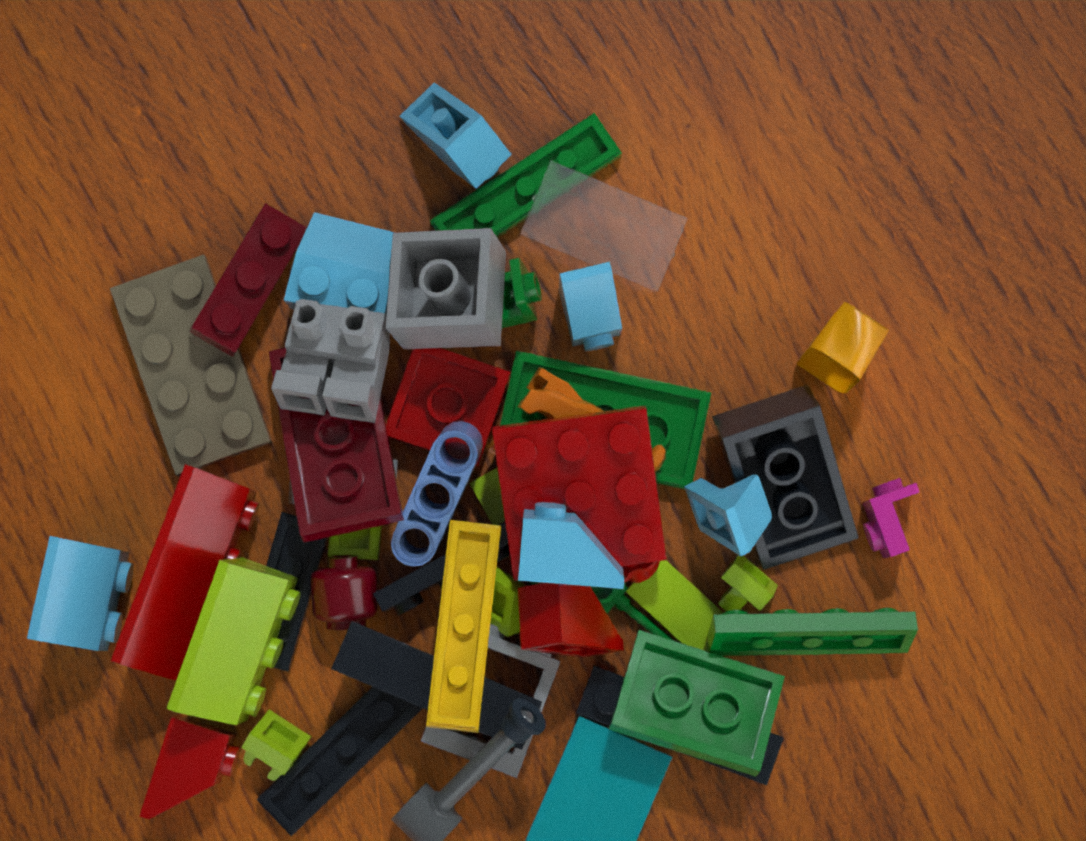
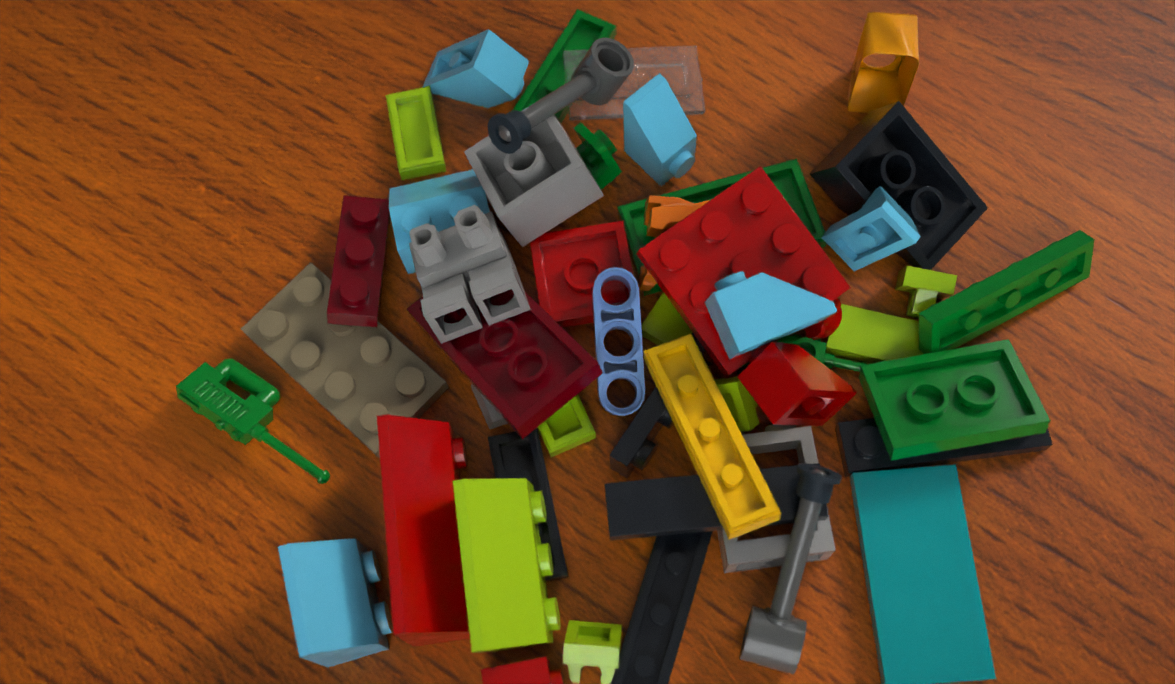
camera: 20 degrees left, 15 degrees down
(70, 376) = (242, 419): none -> green piece
(343, 592) = (580, 473): dark red head -> none
(368, 164) = (415, 133): none -> lime tile
(545, 224) = (594, 80): none -> dark grey piece
(884, 528) = (1001, 180): dark pink bracket -> none

